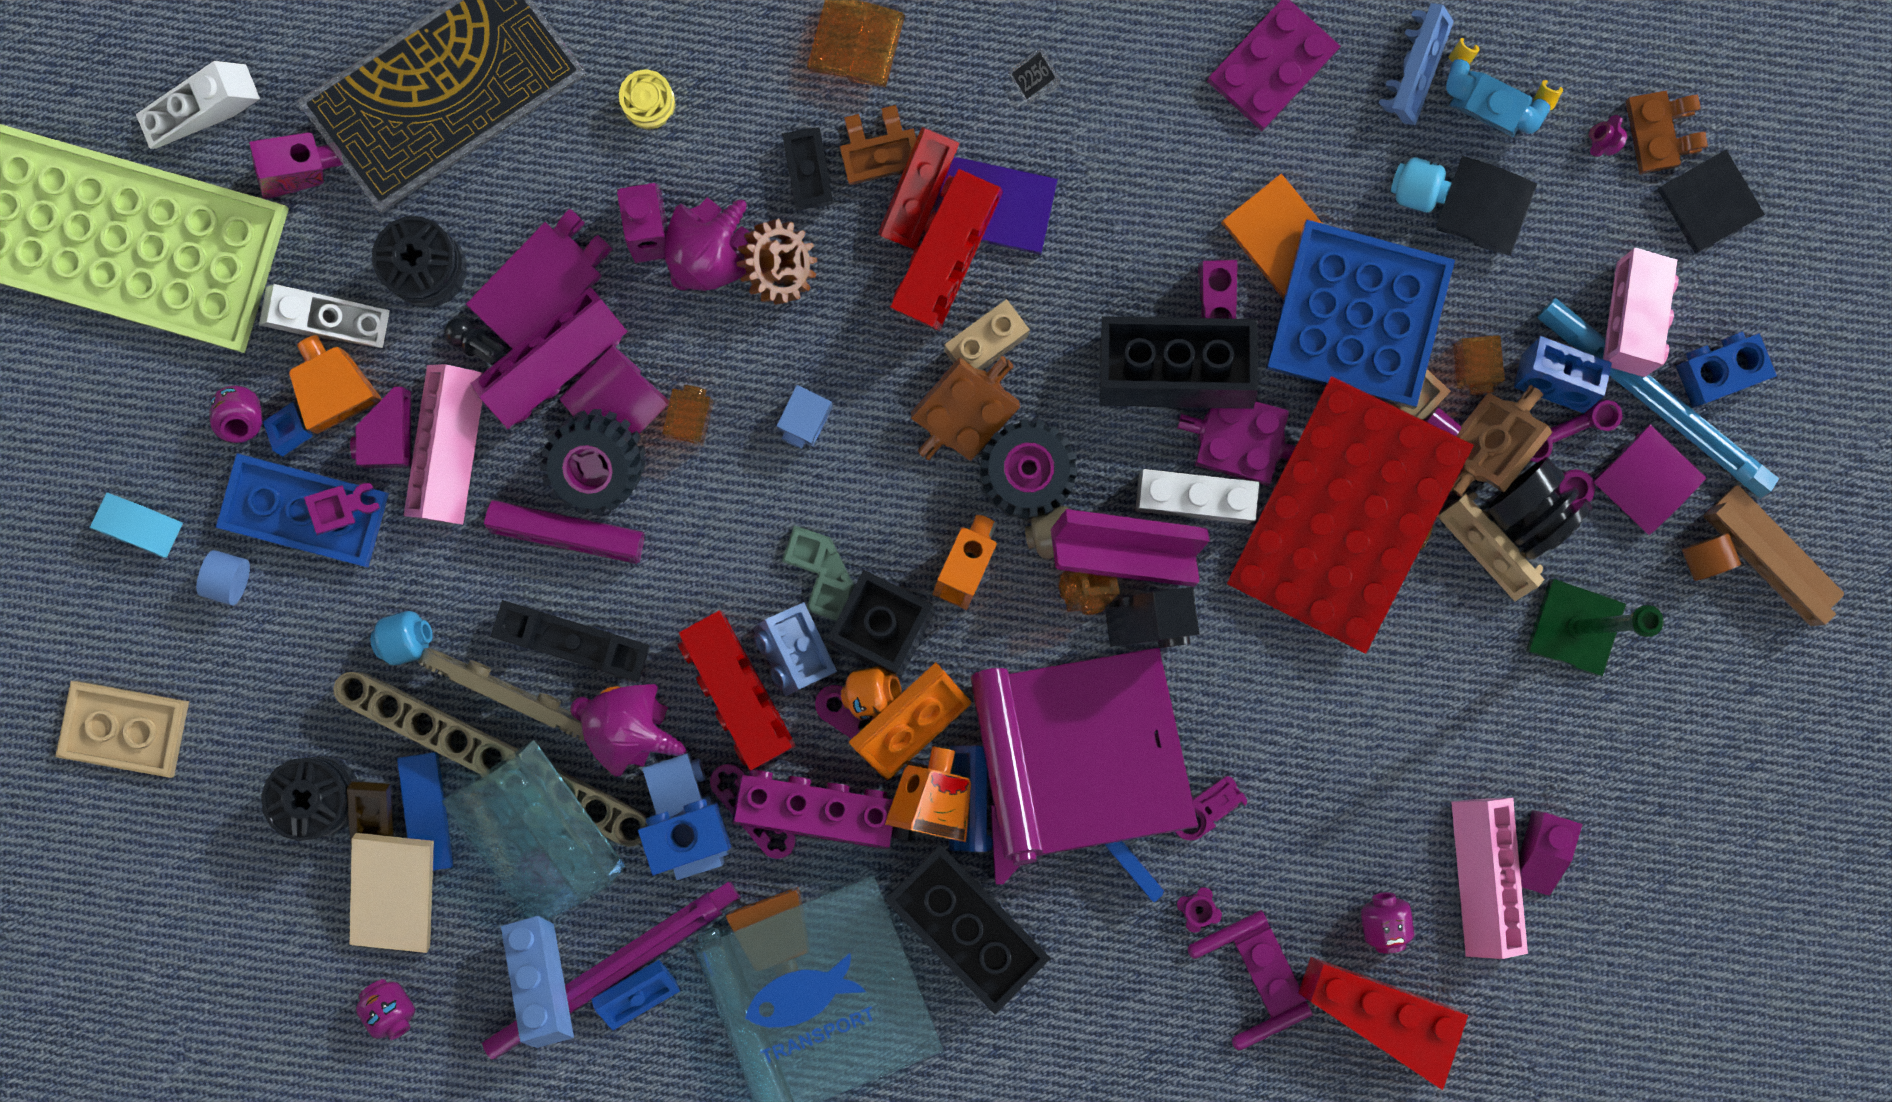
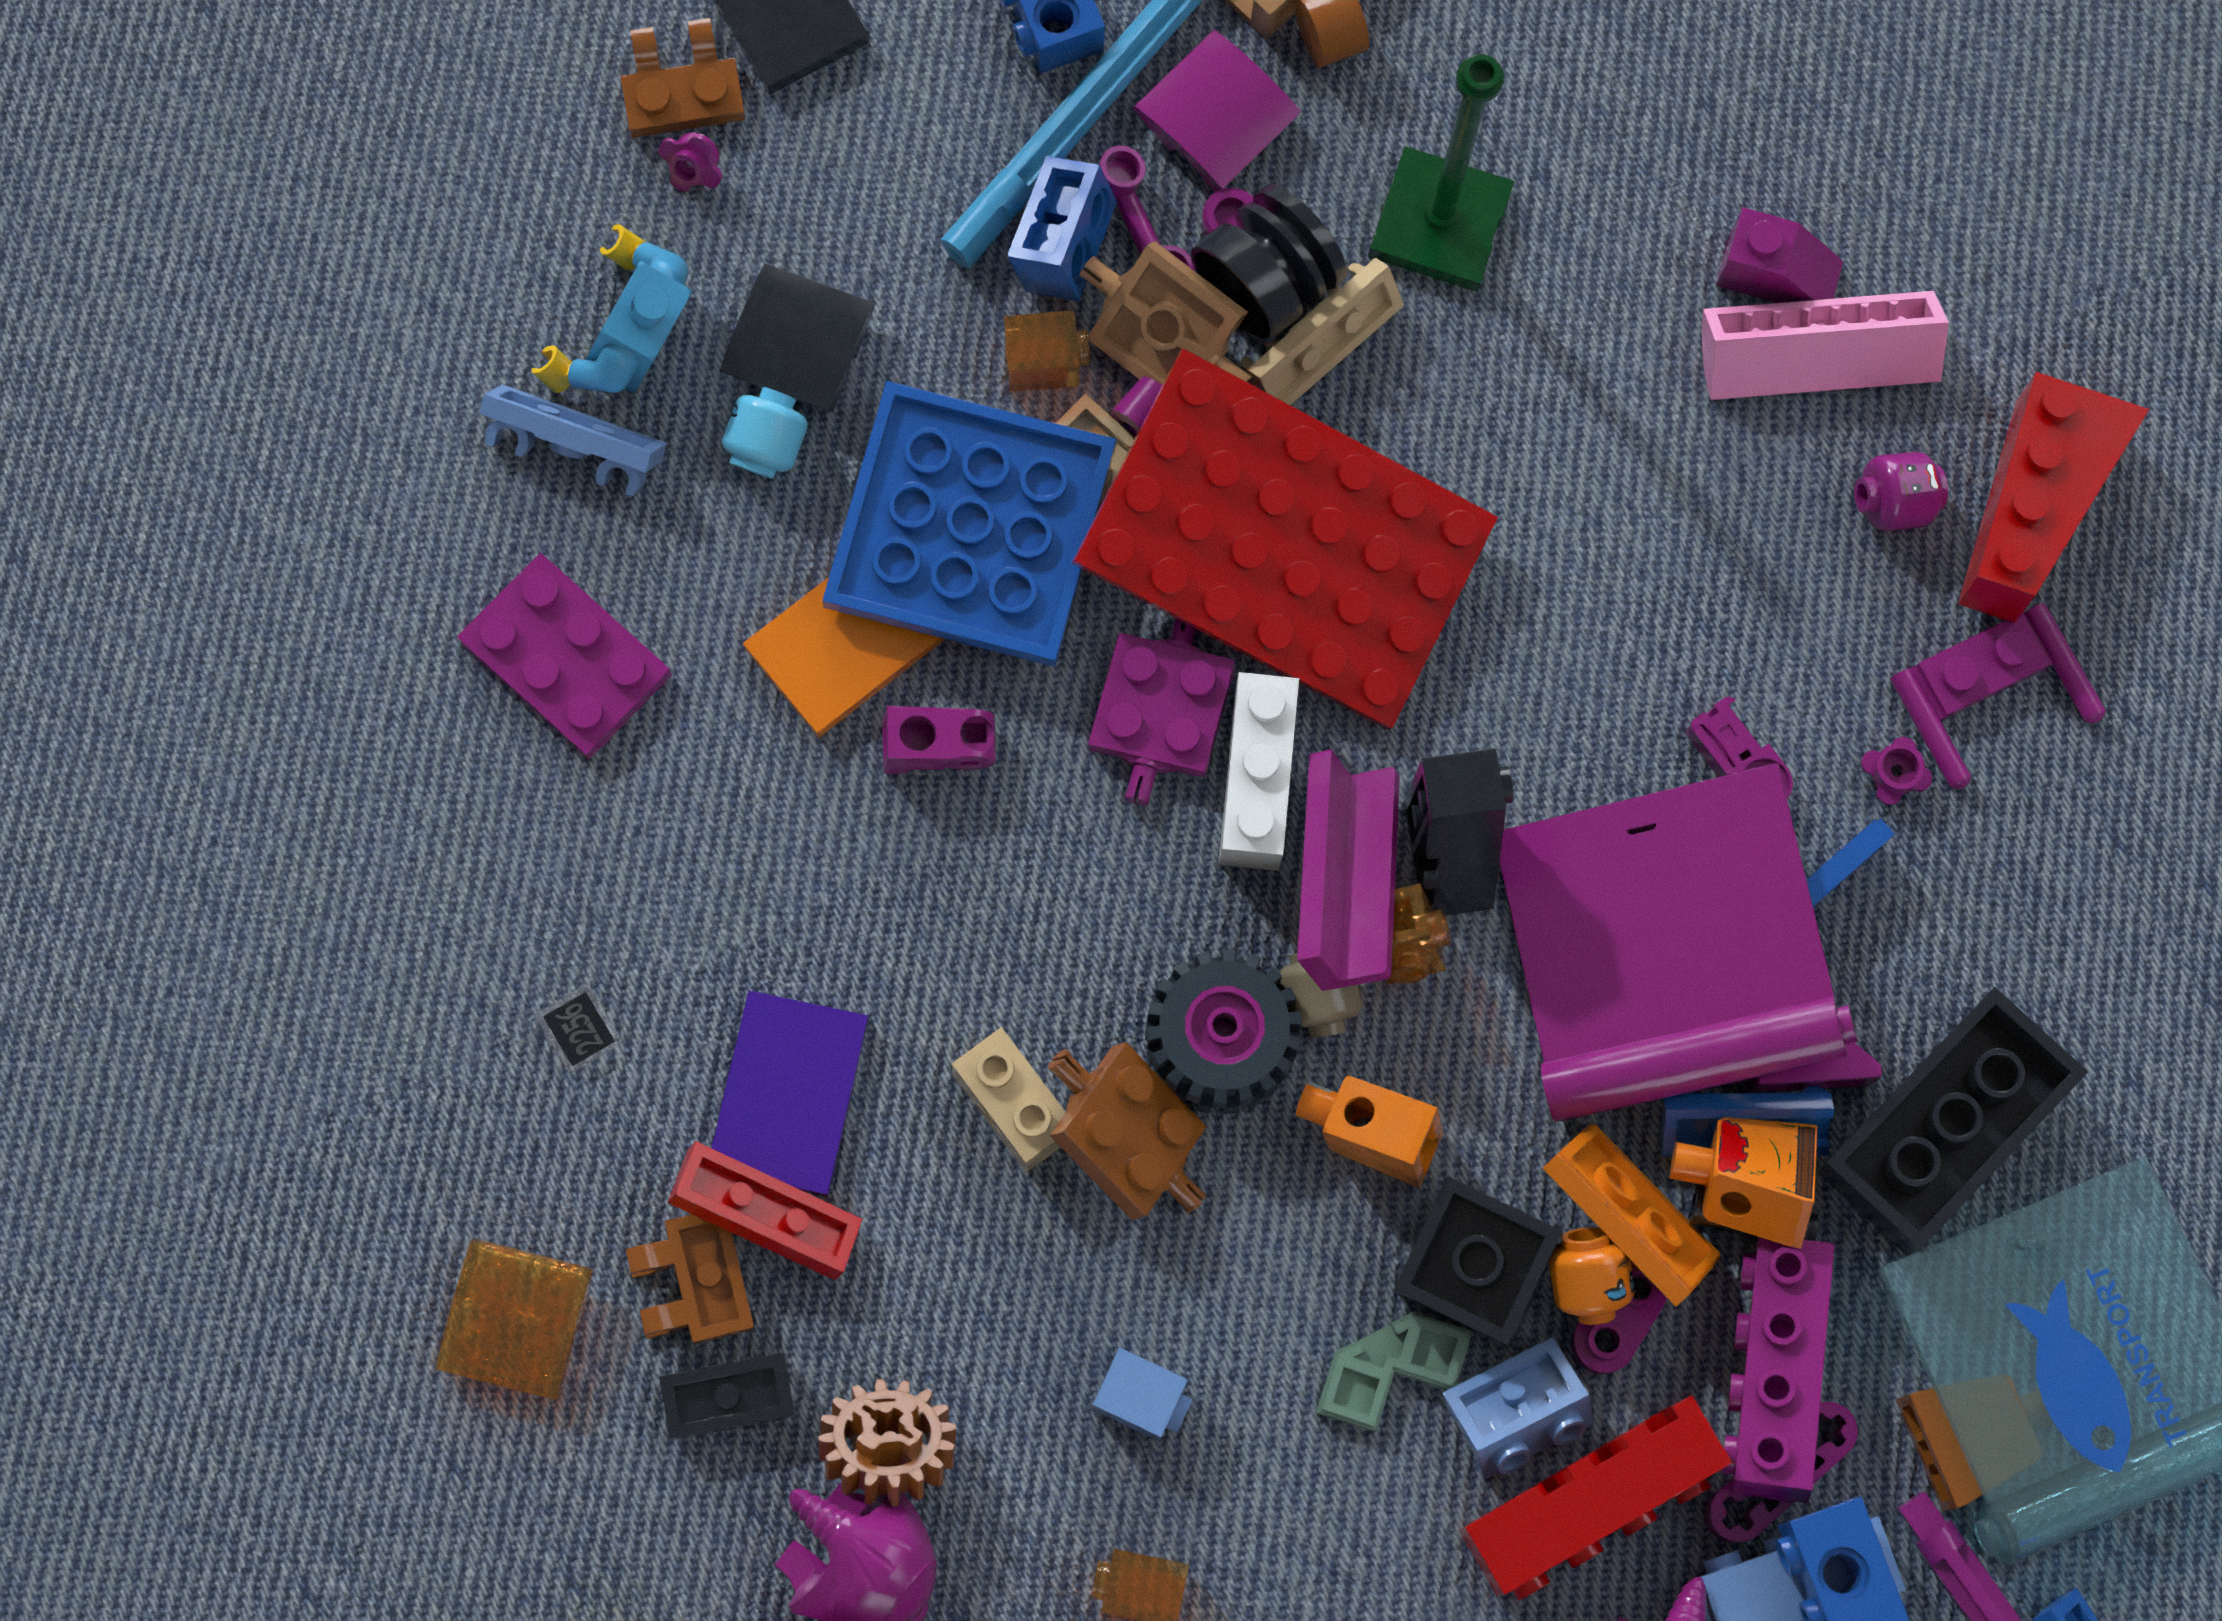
camera: 90 degrees left, 10 degrees down
(947, 249) = (870, 1163): red wedge -> none
(1178, 362) = (1049, 797): black brick -> none
(1640, 312) = (966, 116): brick -> none

